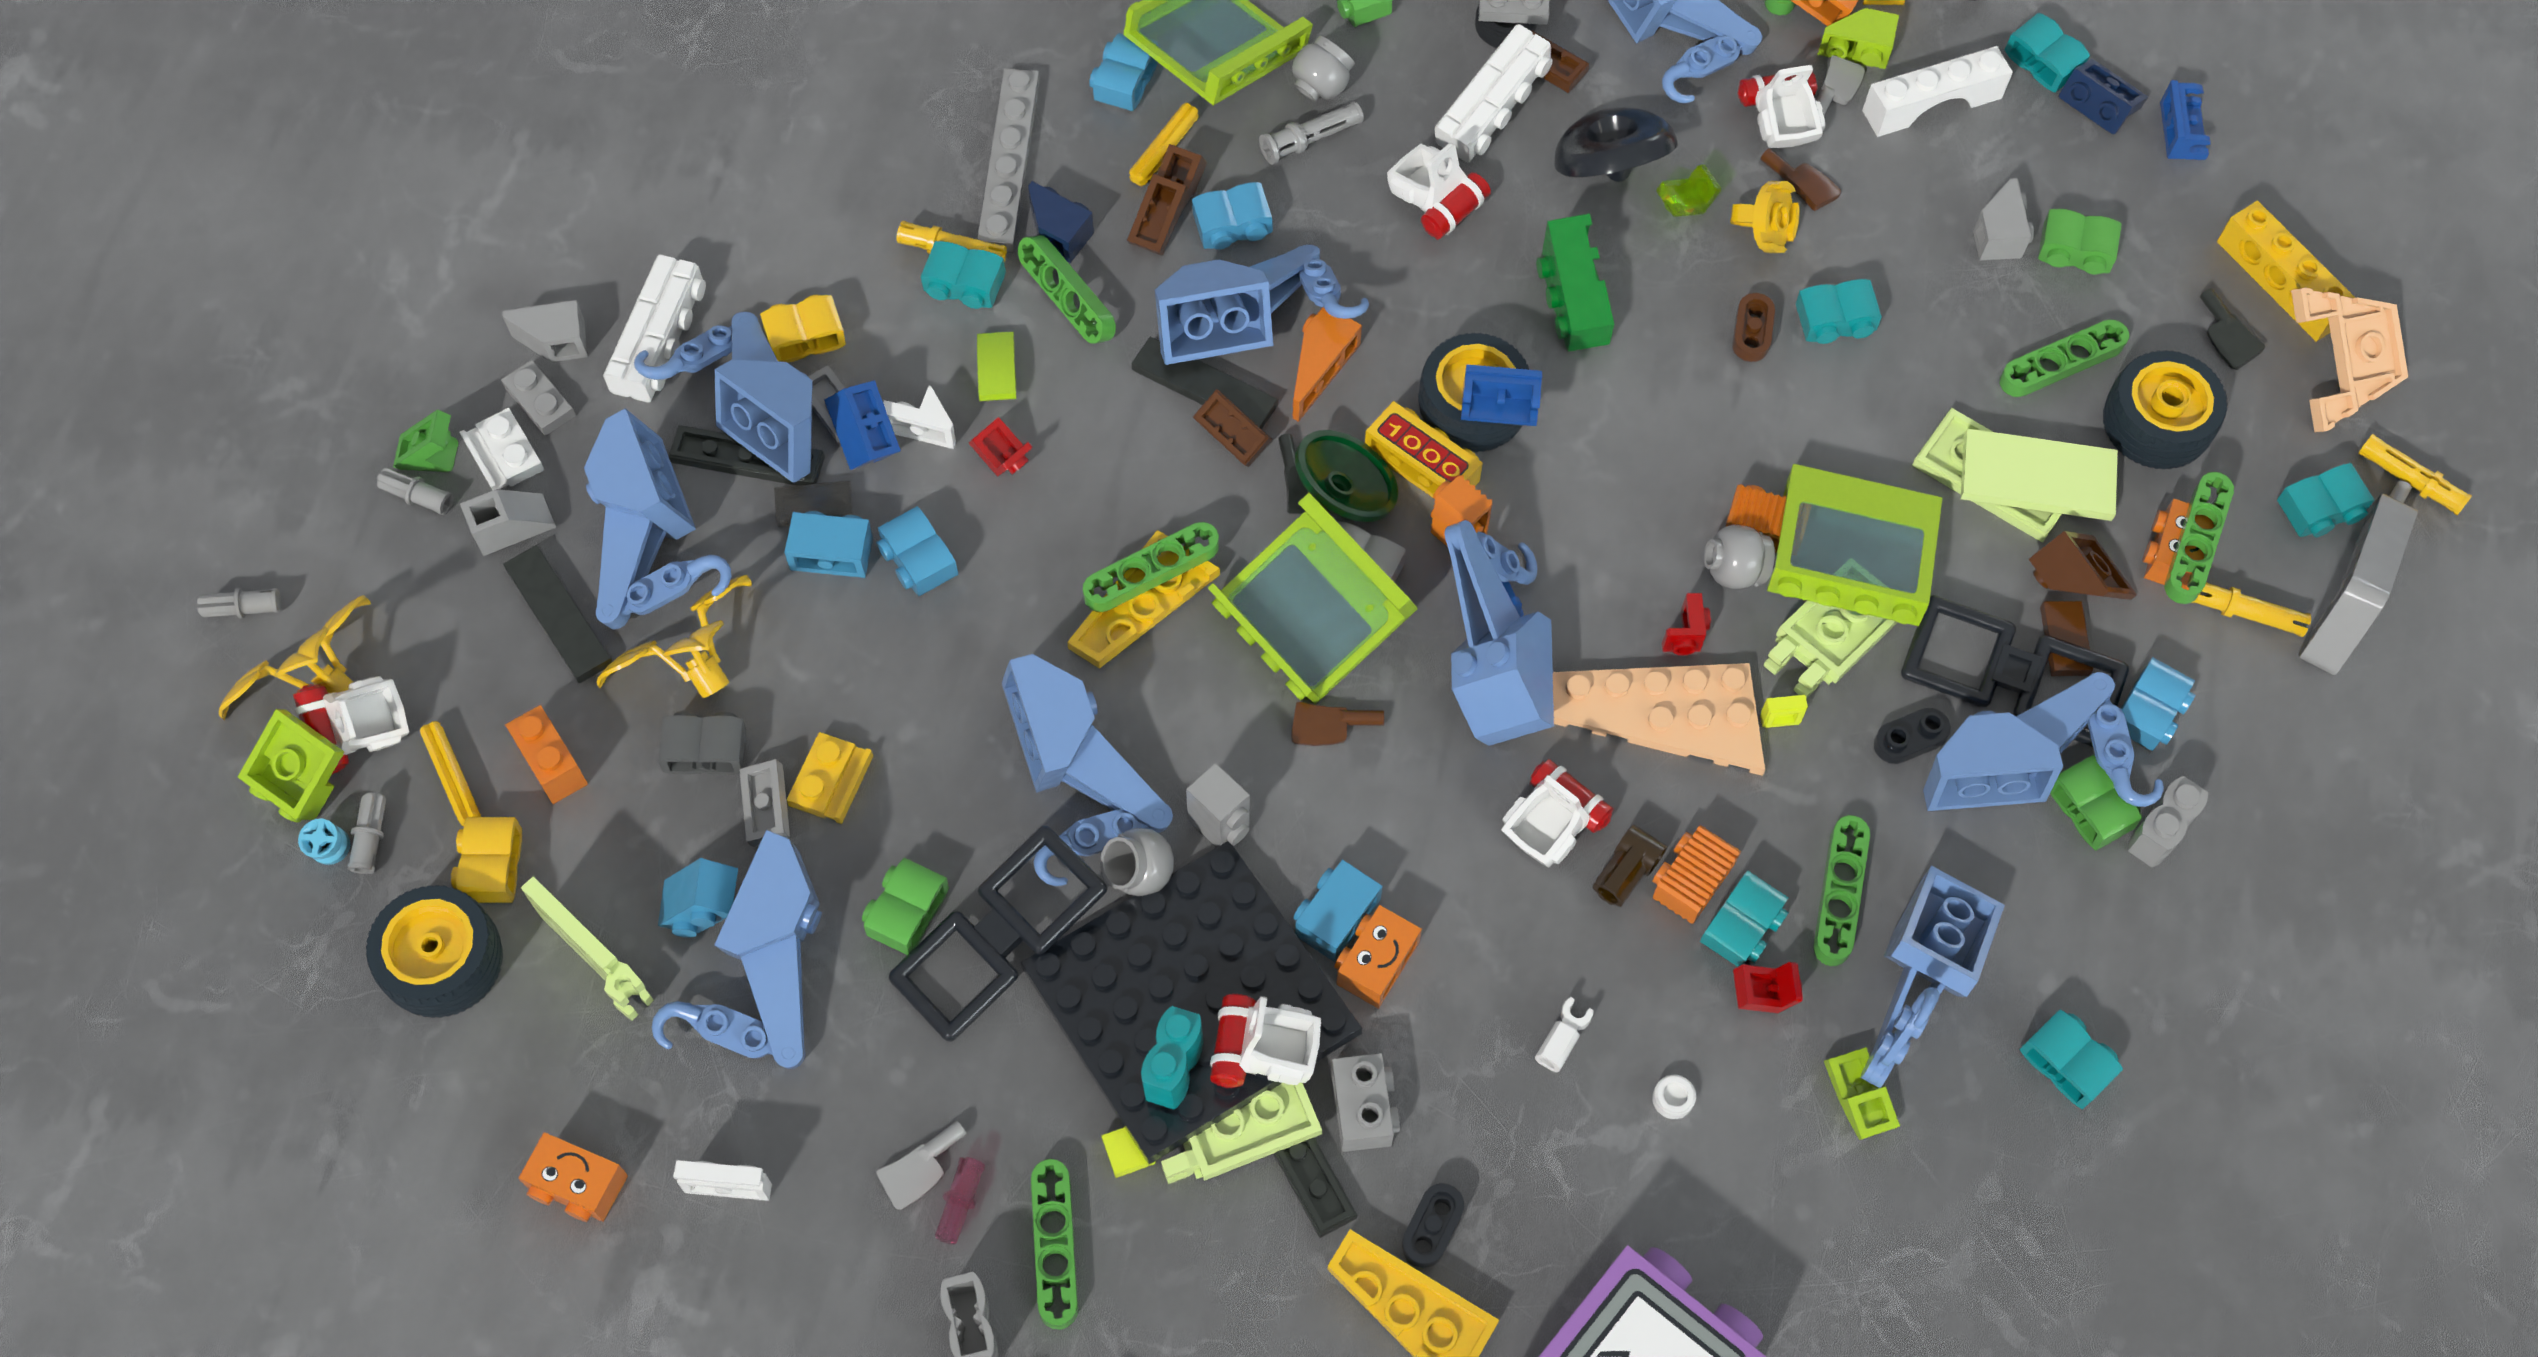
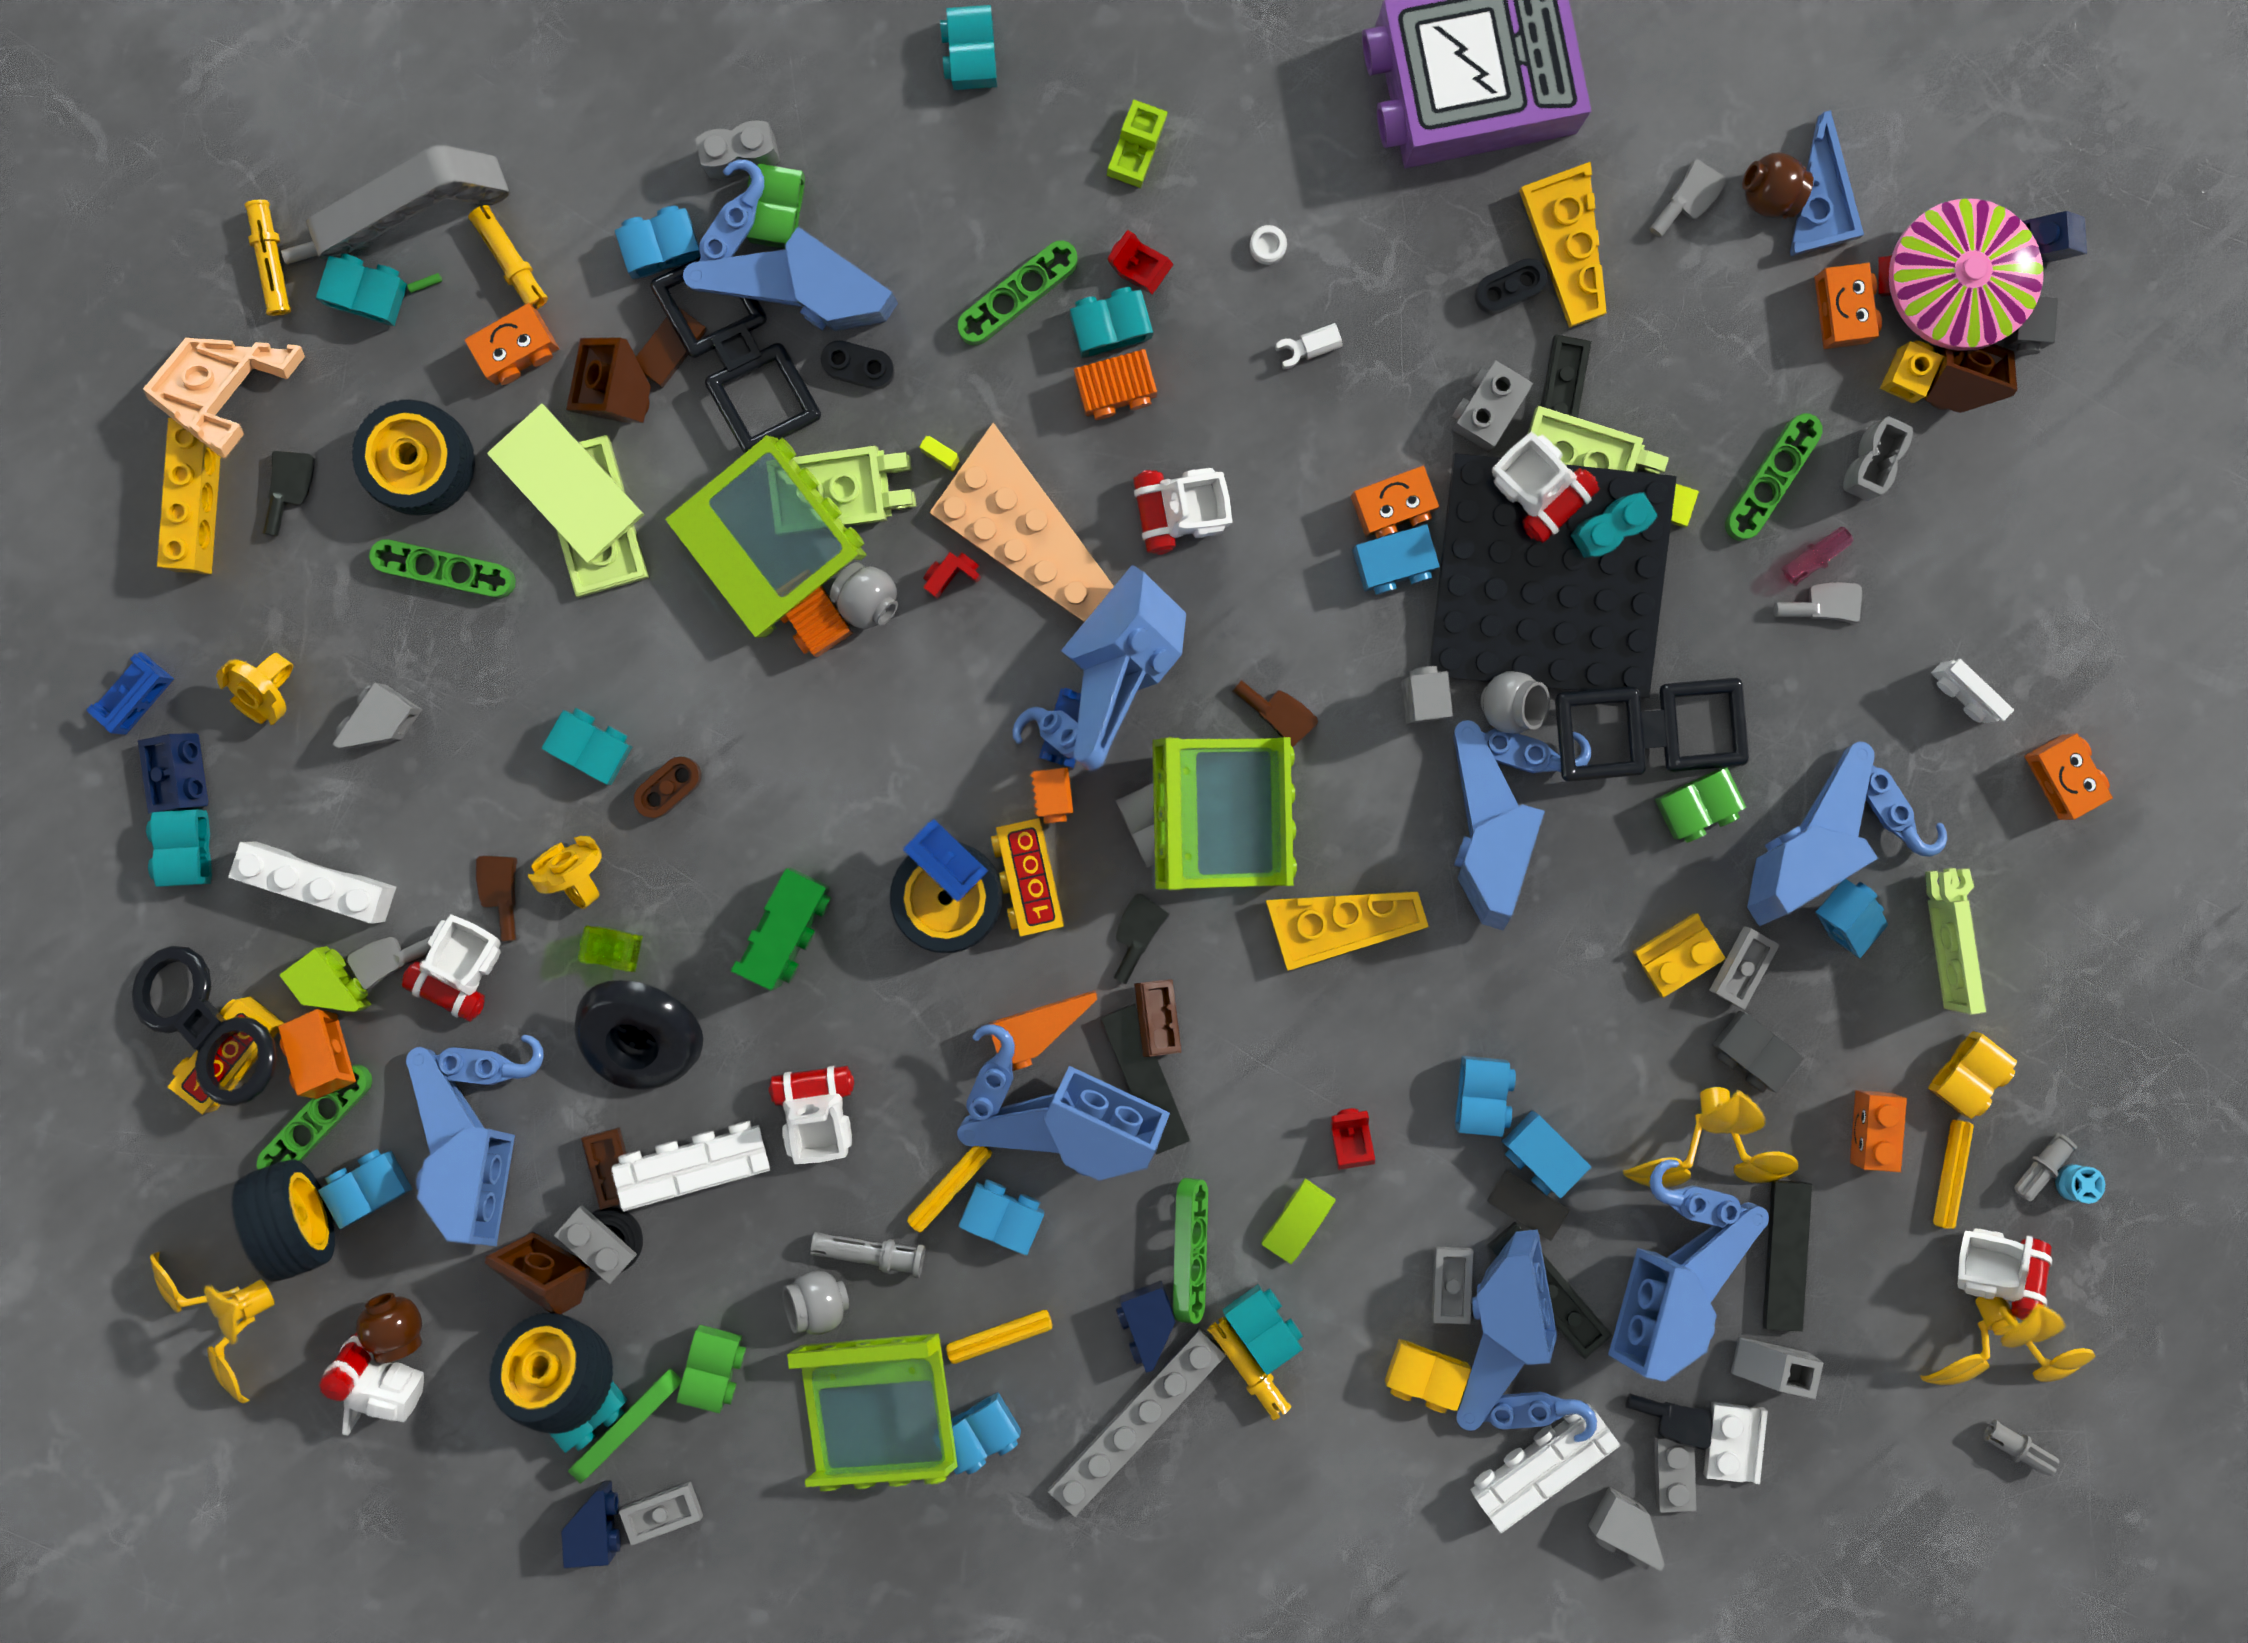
camera: 140 degrees left, 25 degrees up
(291, 767) = (2074, 1259): lime plate -> none
(415, 491) = (1827, 1453): light grey axle -> none
(427, 445) = (1793, 1488): bright green slope -> none
(434, 951) = (2061, 1024): wheel -> none
(559, 431) = (1677, 1423): none -> black piece
(862, 424) = (1450, 1238): blue hinge -> none
(924, 424) = (1389, 1207): white slope -> none
(1154, 571) = (1320, 940): bright green beam -> none
(1166, 199) = (1042, 1275): reddish brown slope -> none
(1290, 210) = (948, 1187): none -> yellow axle
(1346, 476) = (1093, 896): dark green dish -> none
(1633, 858) = (1147, 430): dark brown piece -> none
(1945, 942) = (1001, 183): medium blue slope -> none
(2079, 241) = (331, 655): bright green brick -> none
(2107, 184) = (257, 688): none -> yellow tile
(2196, 536) = (499, 322): bright green beam -> none
(2288, 547) = (424, 283): none -> bright green piece

